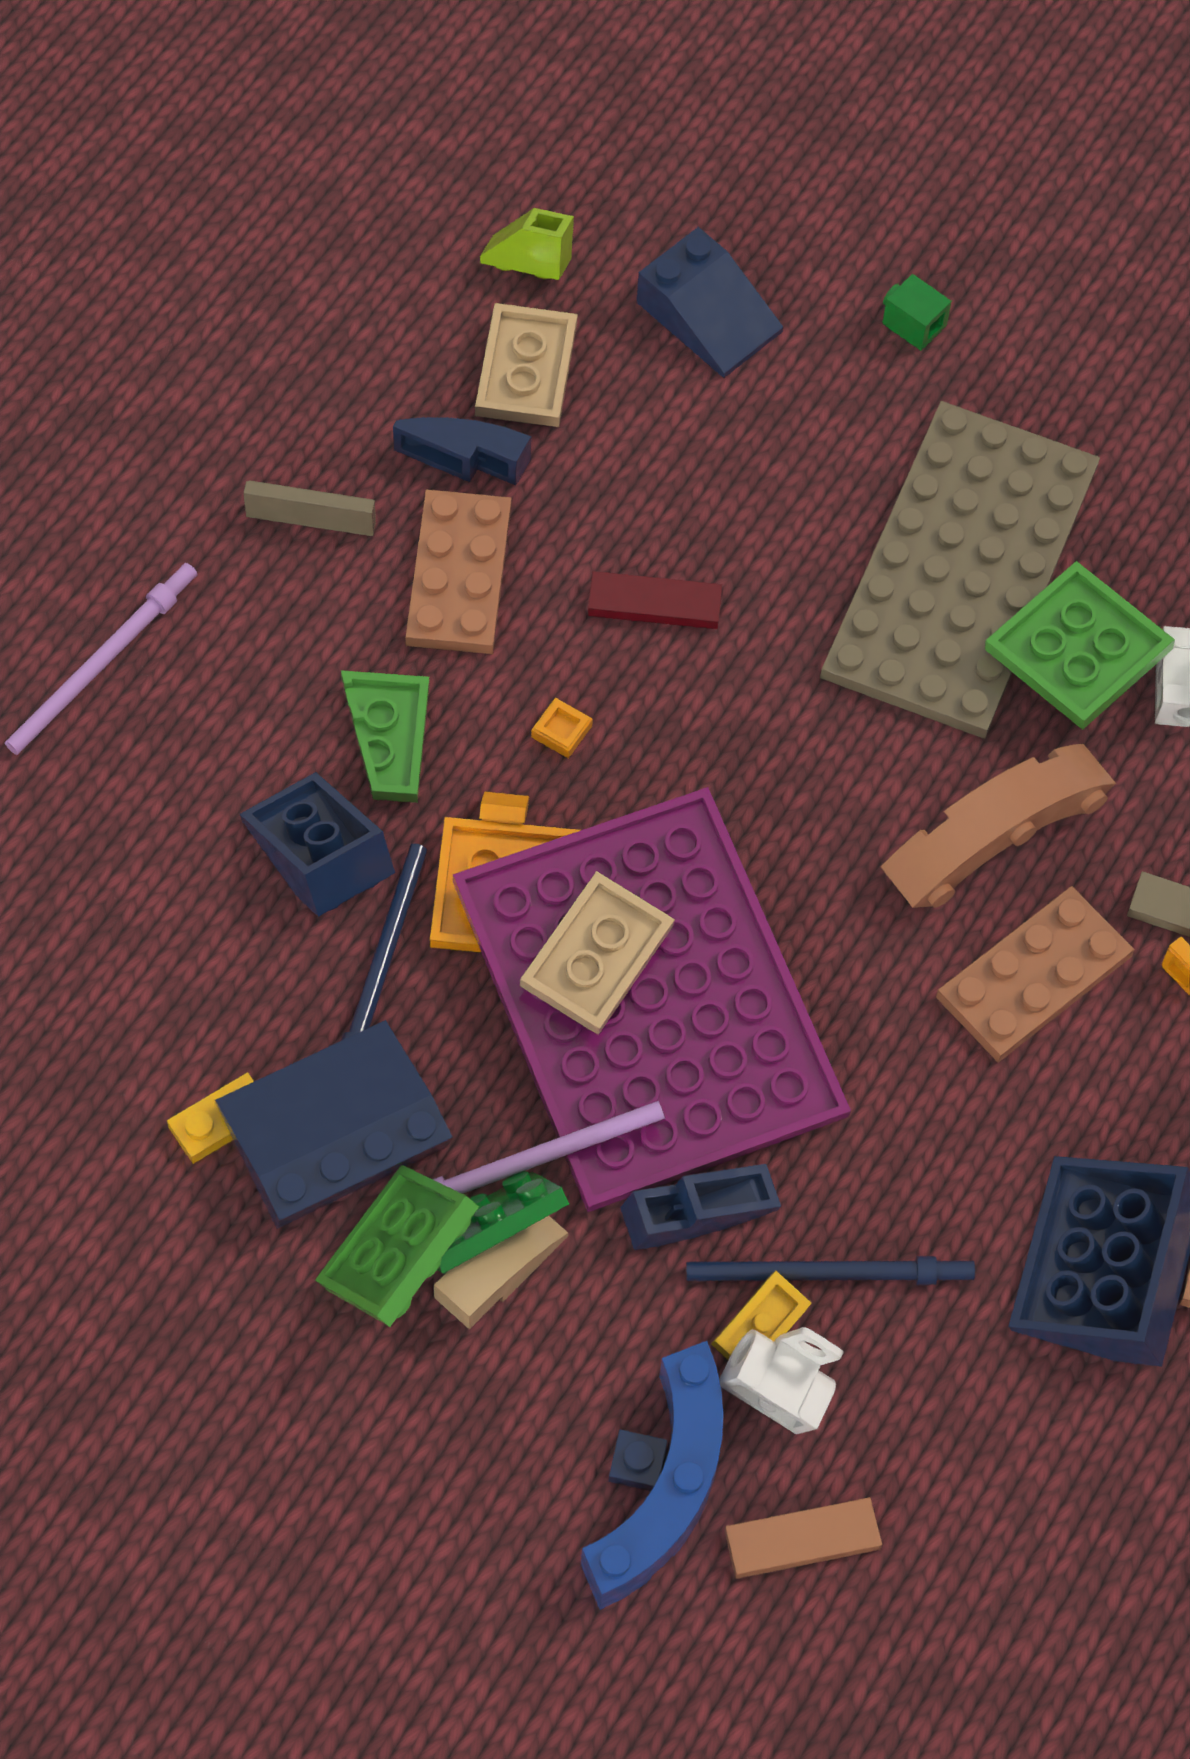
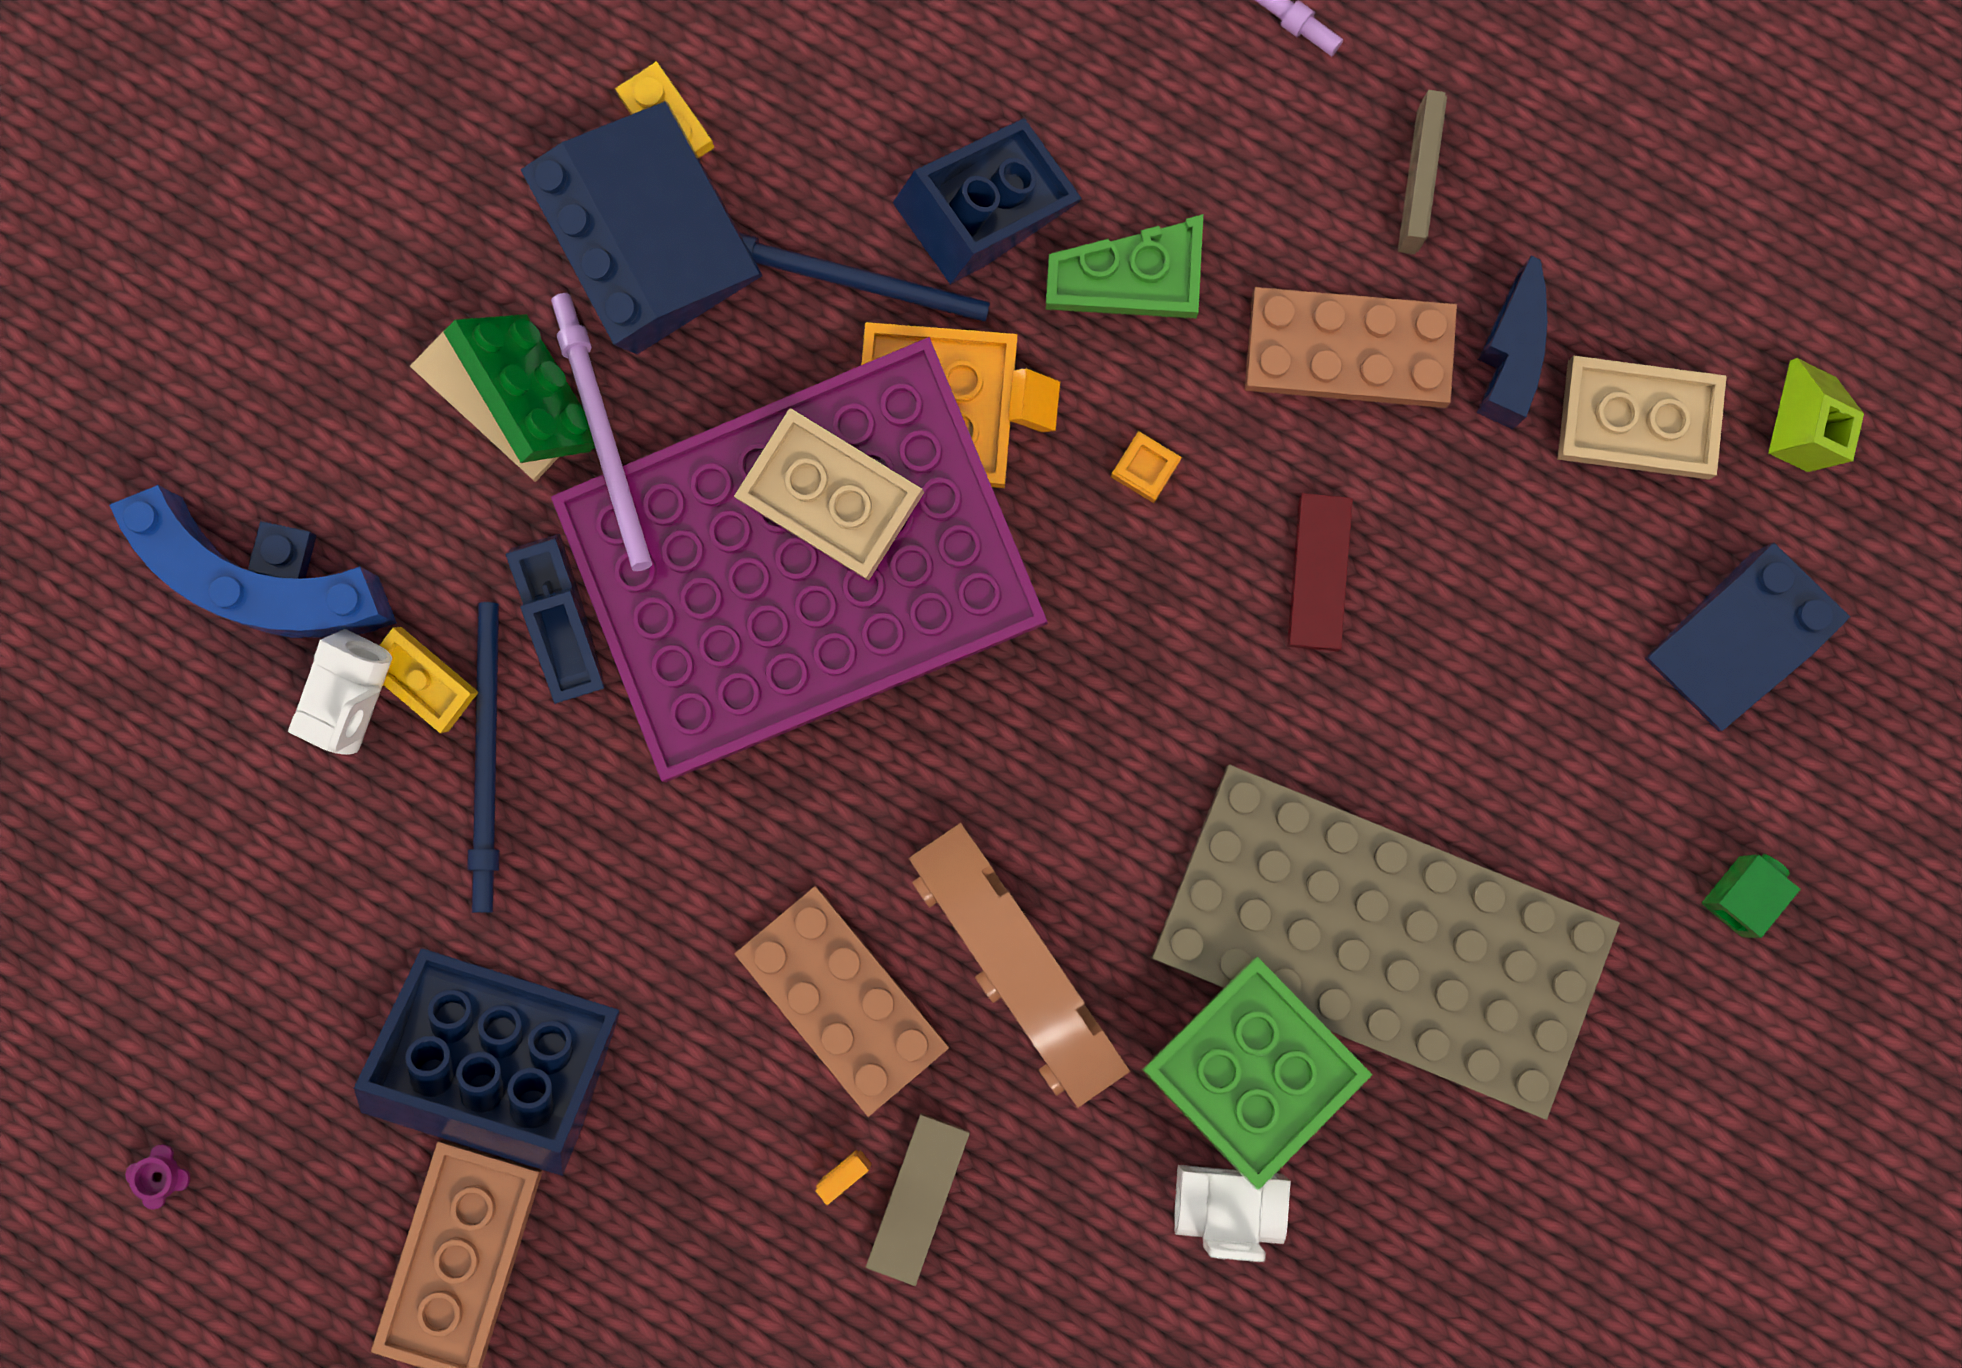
camera: 95 degrees right, 20 degrees up
(397, 1245) = (479, 285): bright green plate -> none
(803, 1538) = (195, 721): nougat tile -> none

